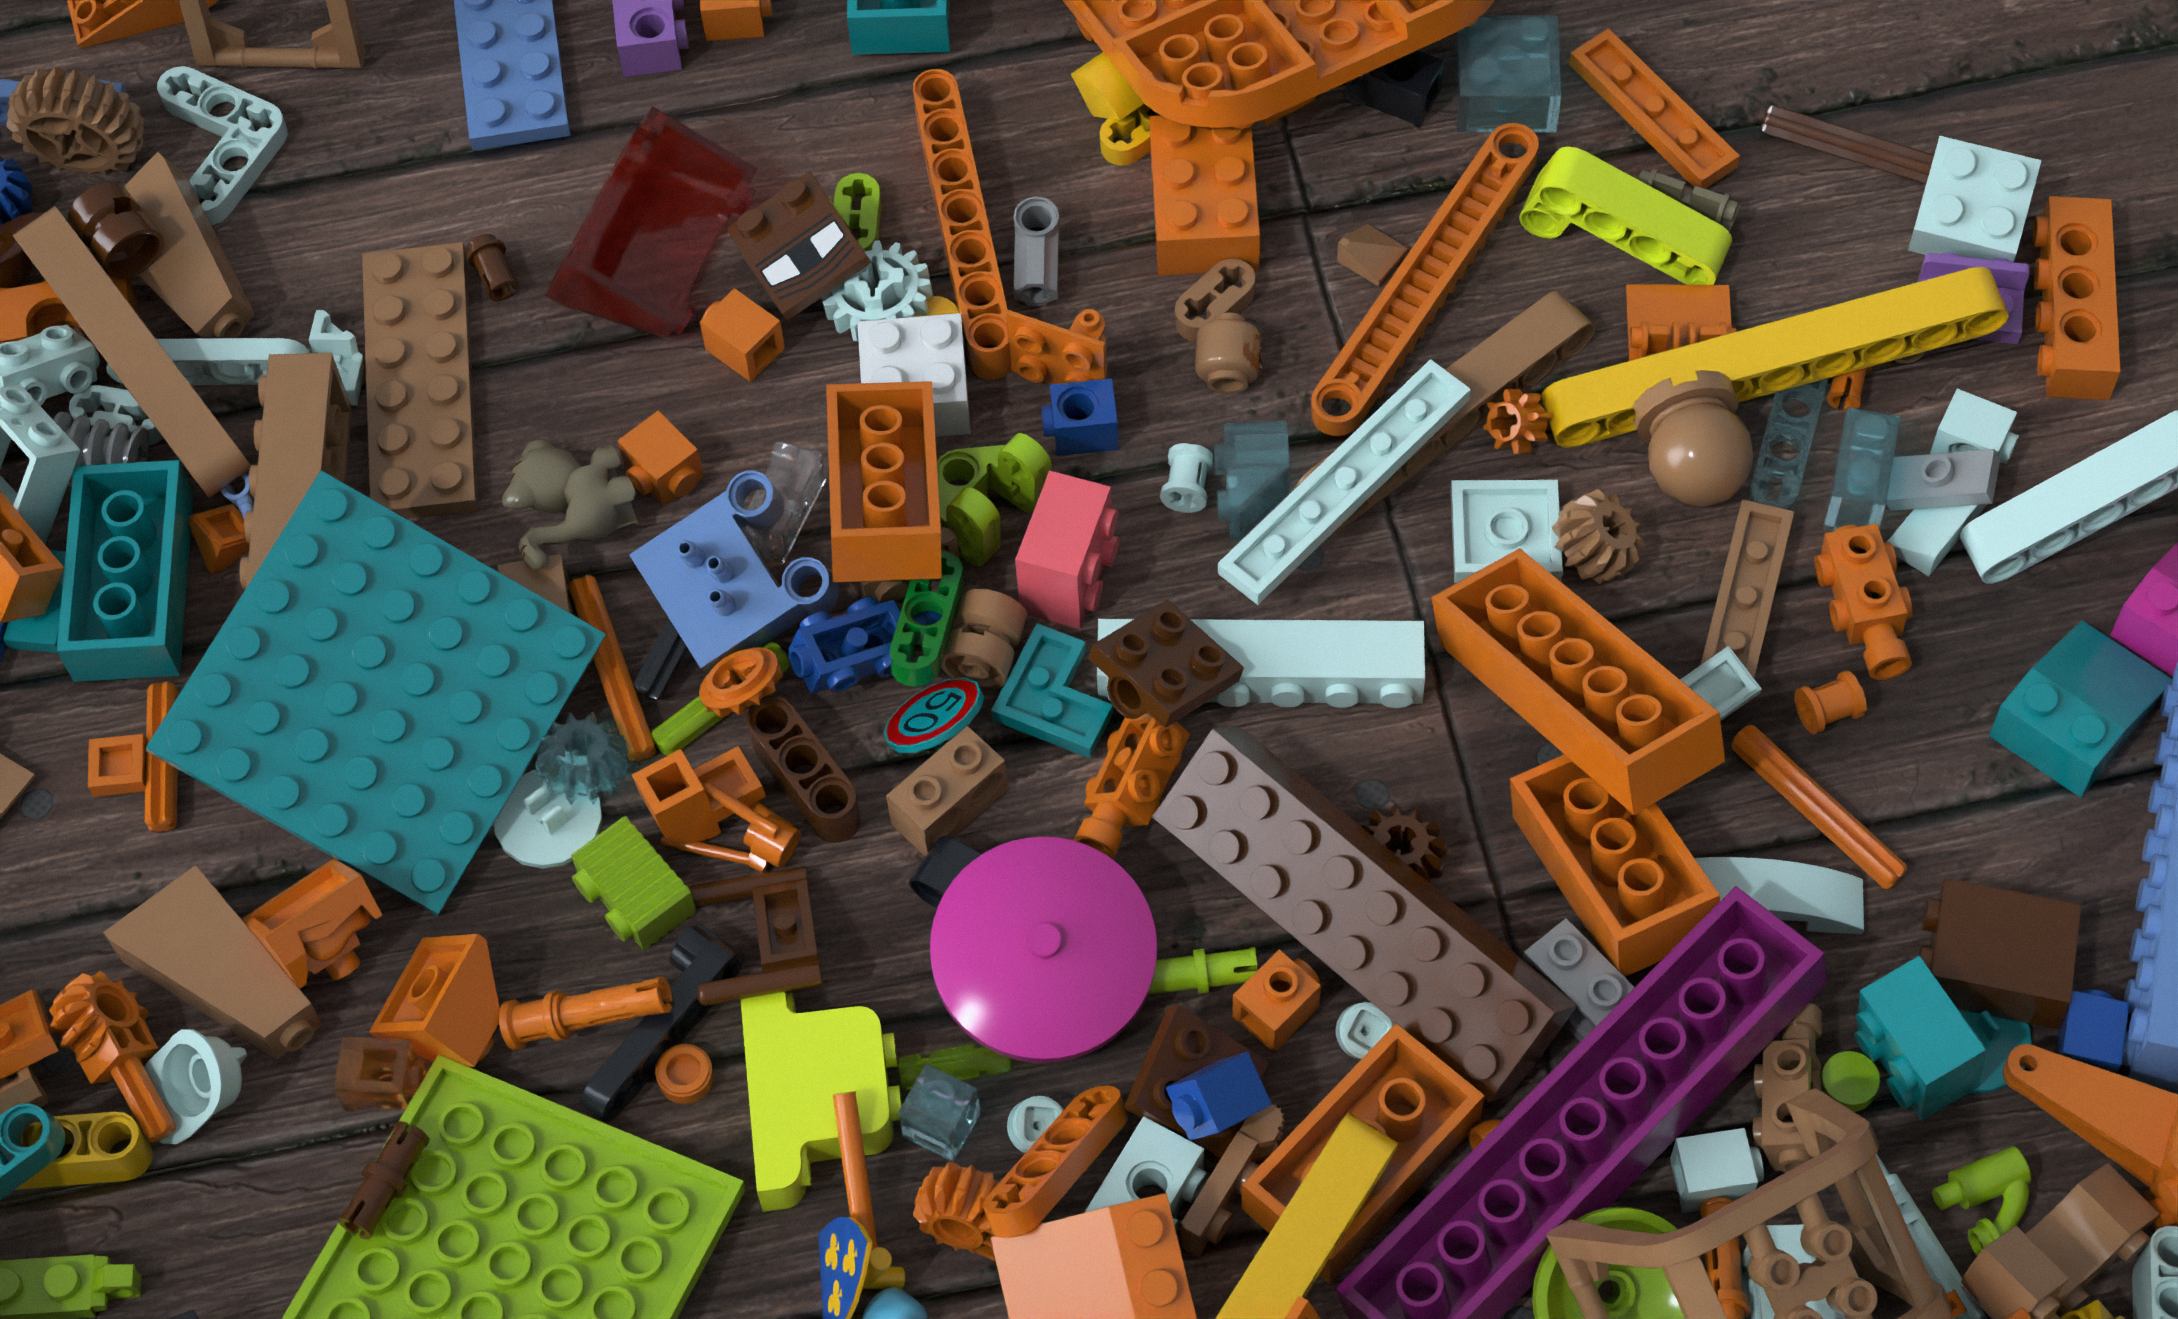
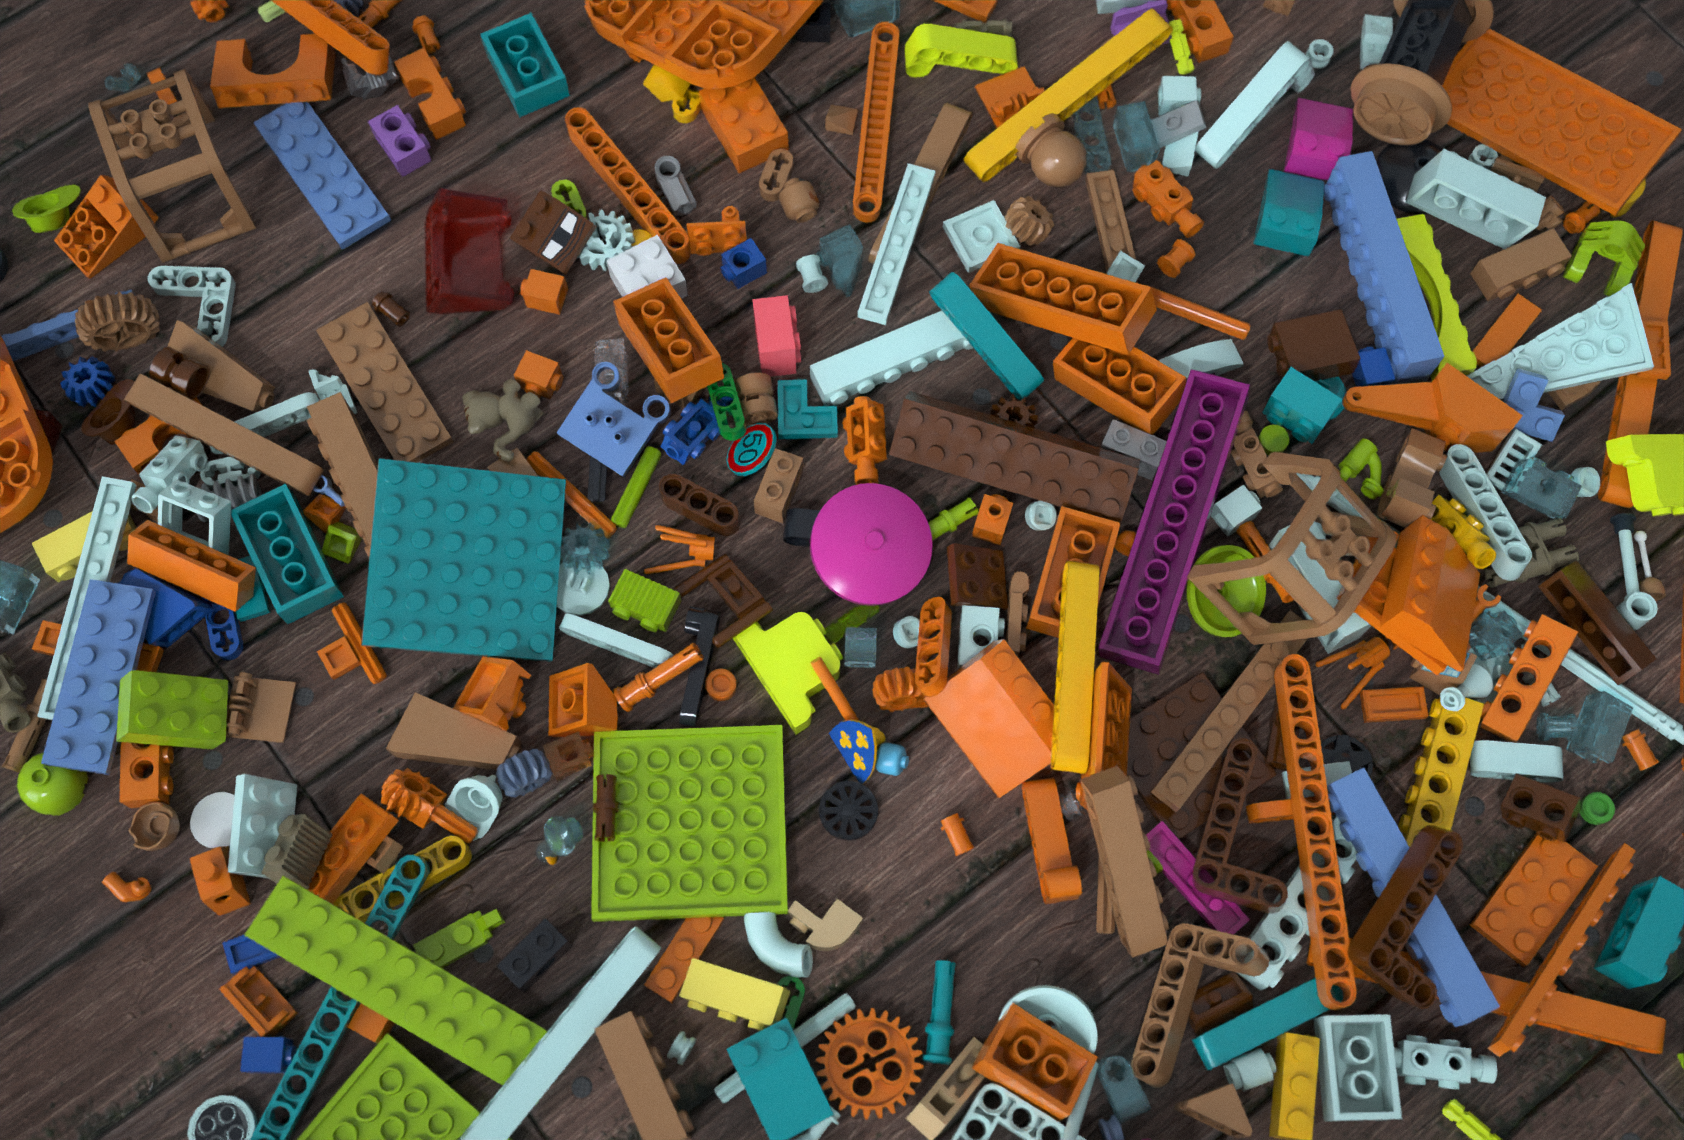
camera: 30 degrees left, 10 degrees up
(216, 590) = (341, 542): none -> lime slope
(290, 1067) = (523, 773): none -> sand blue gear
(292, 1199) = (560, 838): none -> clear light blue animal
(547, 922) = (613, 641): none -> light aqua beam
(678, 794) = (648, 546): orange brick -> none
(757, 670) = (646, 463): orange gear -> none
(1011, 470) = (727, 308): lime piece -> none
(1163, 665) = (858, 376): reddish brown plate -> none
(1218, 1096) = (996, 579): blue brick -> none
(1417, 692) = (986, 336): none -> teal beam
(1517, 421) = (952, 182): orange gear -> none
(2020, 356) = (1180, 48): none -> neon yellow axle

